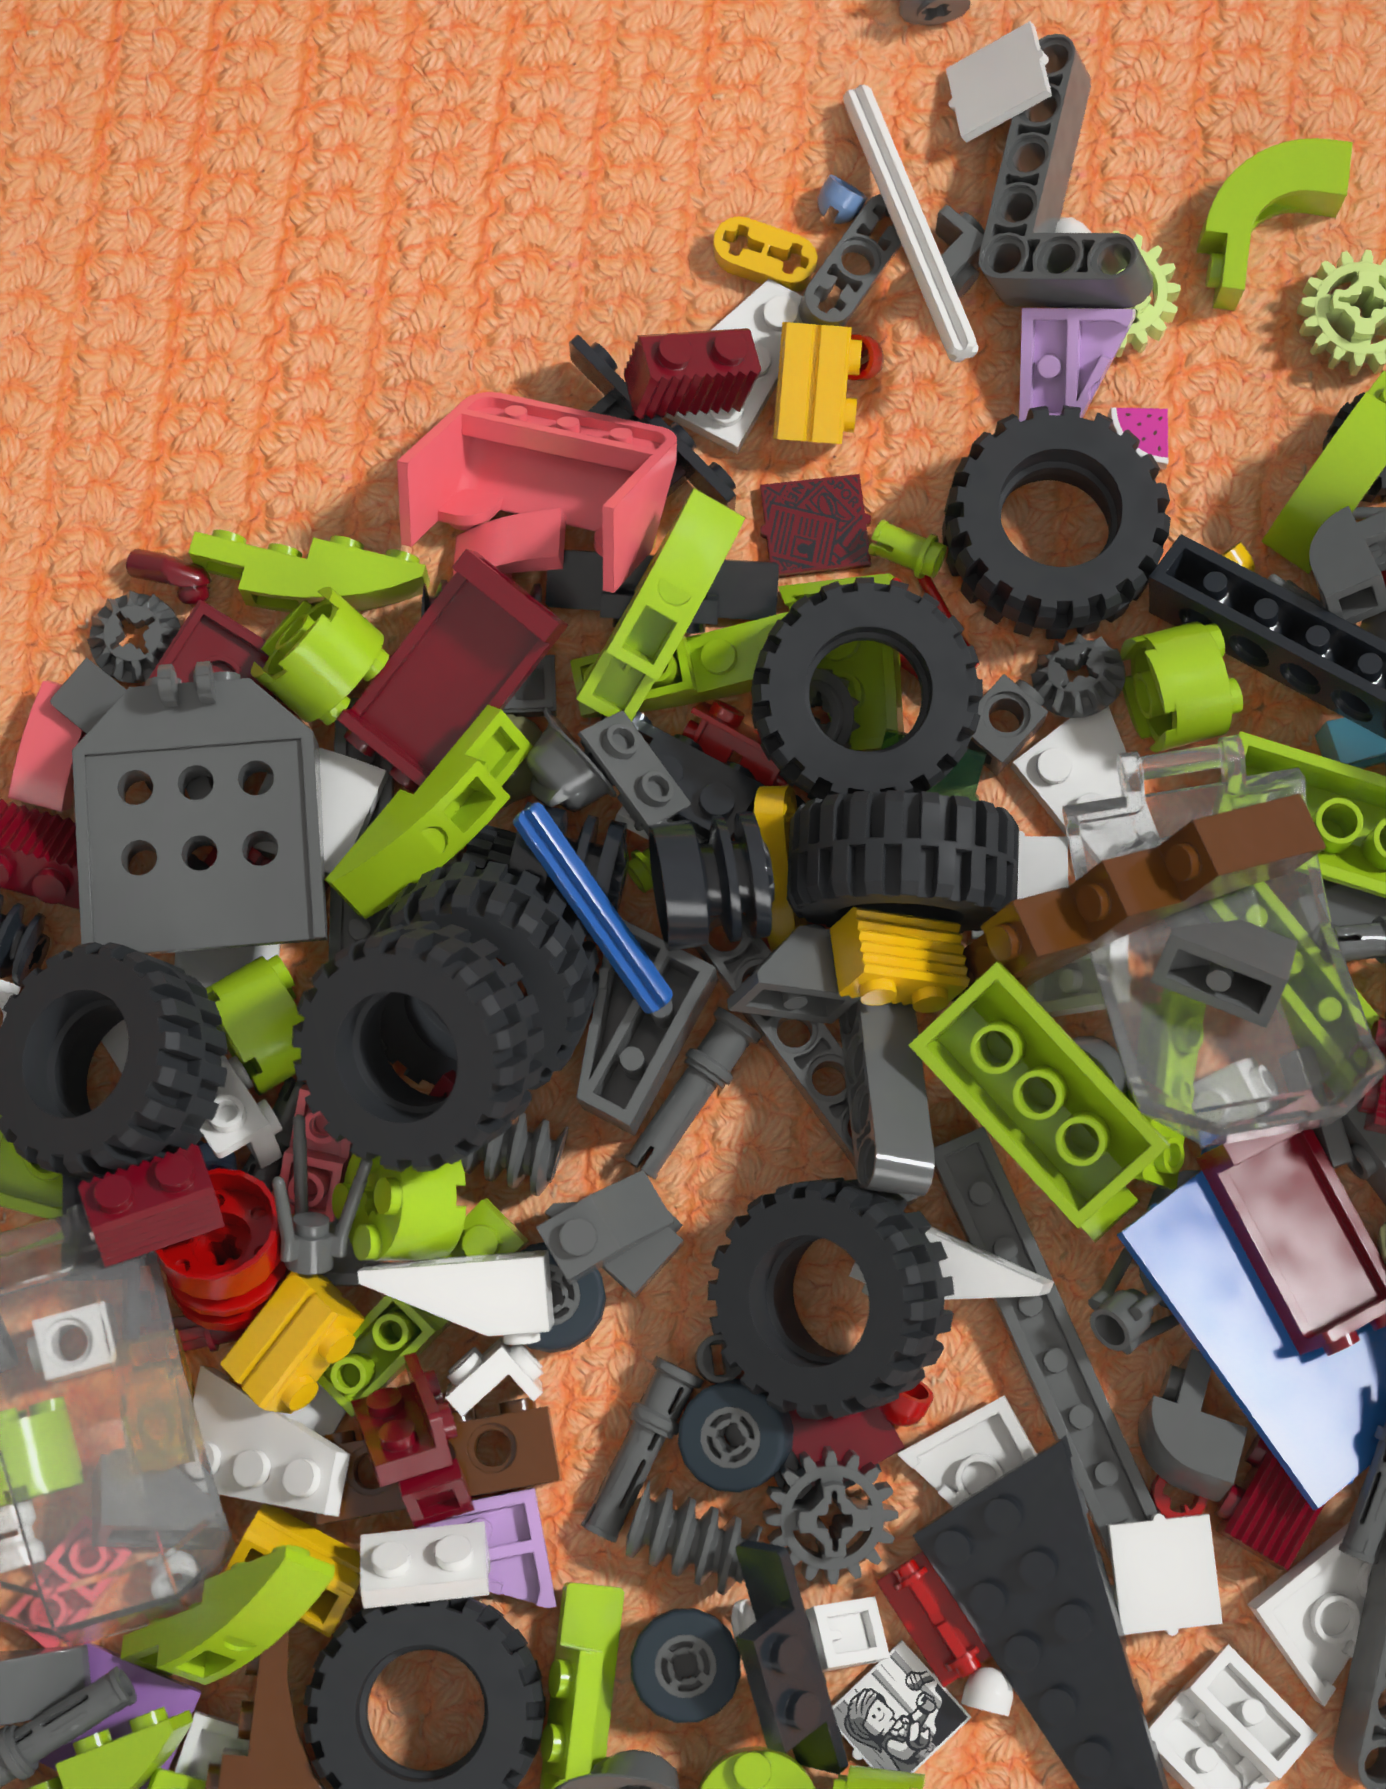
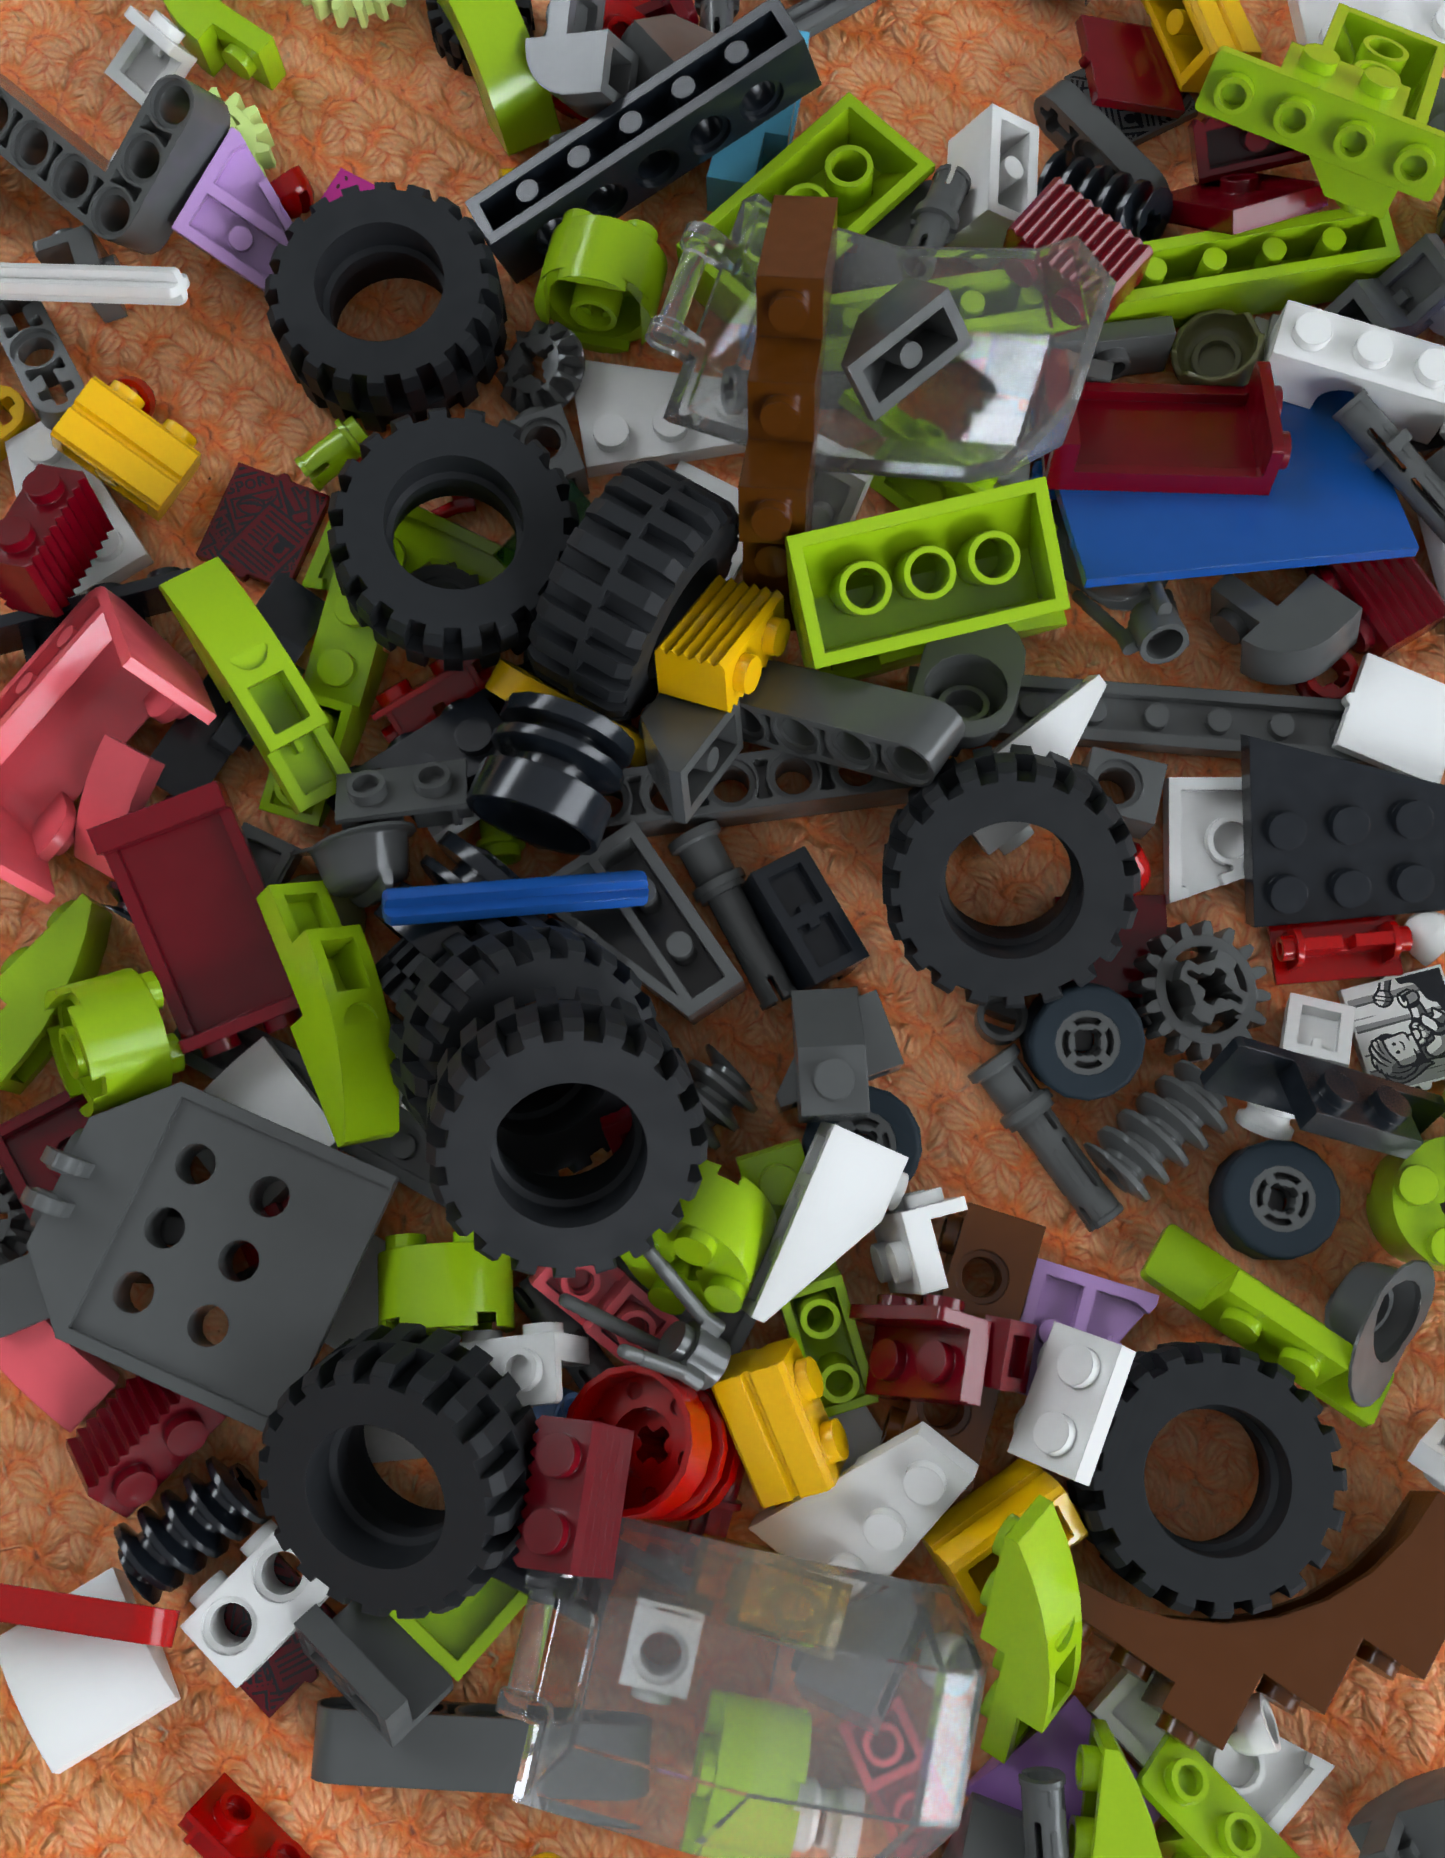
camera: 60 degrees left, 0 degrees up
(712, 1152) = (804, 921): none -> black hinge
(979, 1184) = (976, 677): none -> dark grey piece
(990, 1375) = (1139, 780): none -> dark grey brick
(1122, 381) = (294, 192): none -> red hinge
(1170, 199) = (149, 54): none -> white bracket

